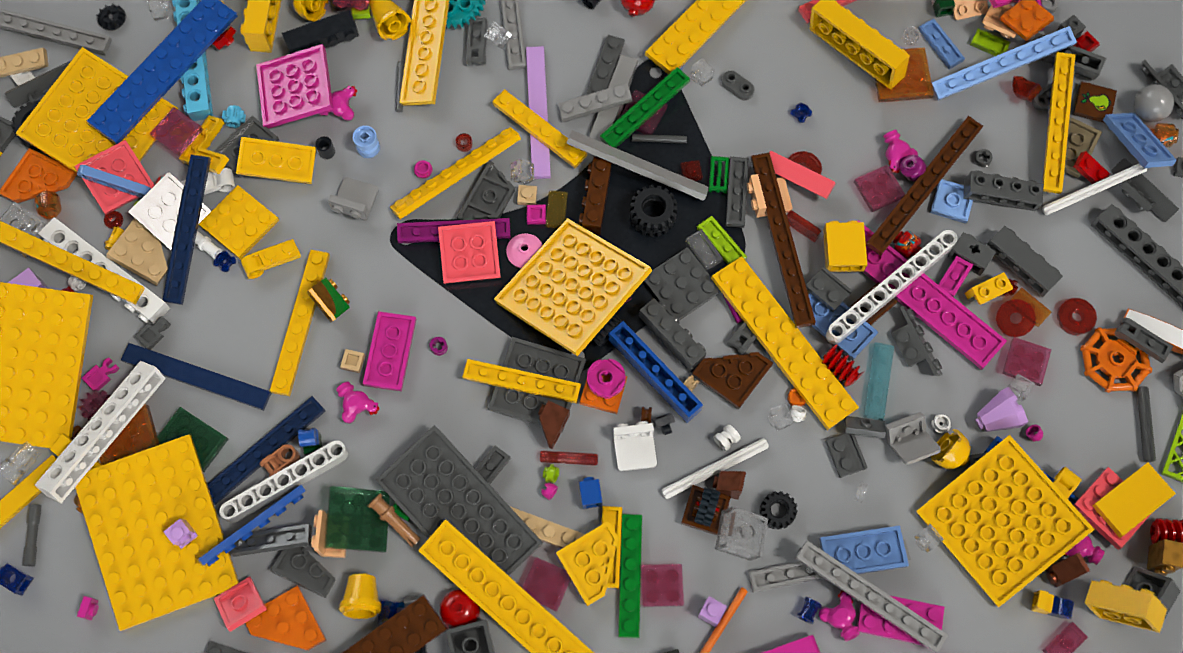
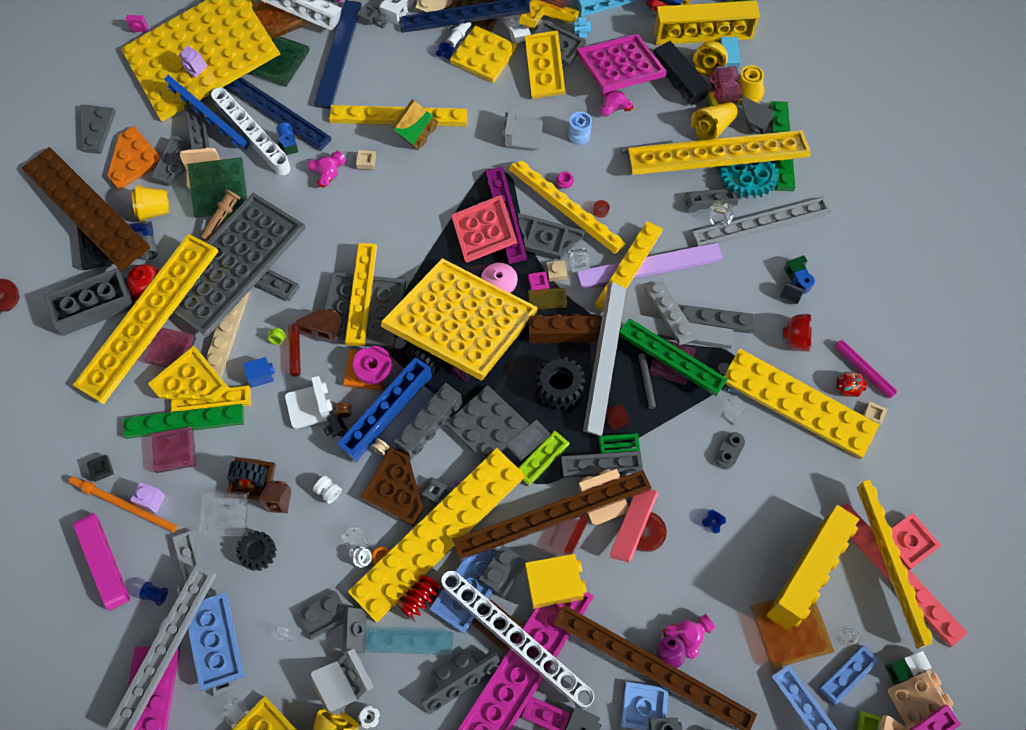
camera: 80 degrees right, 5 degrees down
(240, 604) = (142, 119): coral plate -> none
(270, 257) = (453, 80): yellow plate -> none
(278, 460) = (268, 124): nougat piece -> none
(322, 142) = (567, 99): black beam -> none
(389, 351) = (379, 186): dark pink plate -> none
(433, 343) = (391, 229): magenta bush -> none
(550, 490) = (259, 337): dark pink hinge -> none
(715, 468) = (296, 485): white axle -> none
(842, 616) = (145, 628): dark pink animal -> none
(879, 188) = (639, 617): clear pink plate -> none
(907, 244) = (576, 656): red head -> none

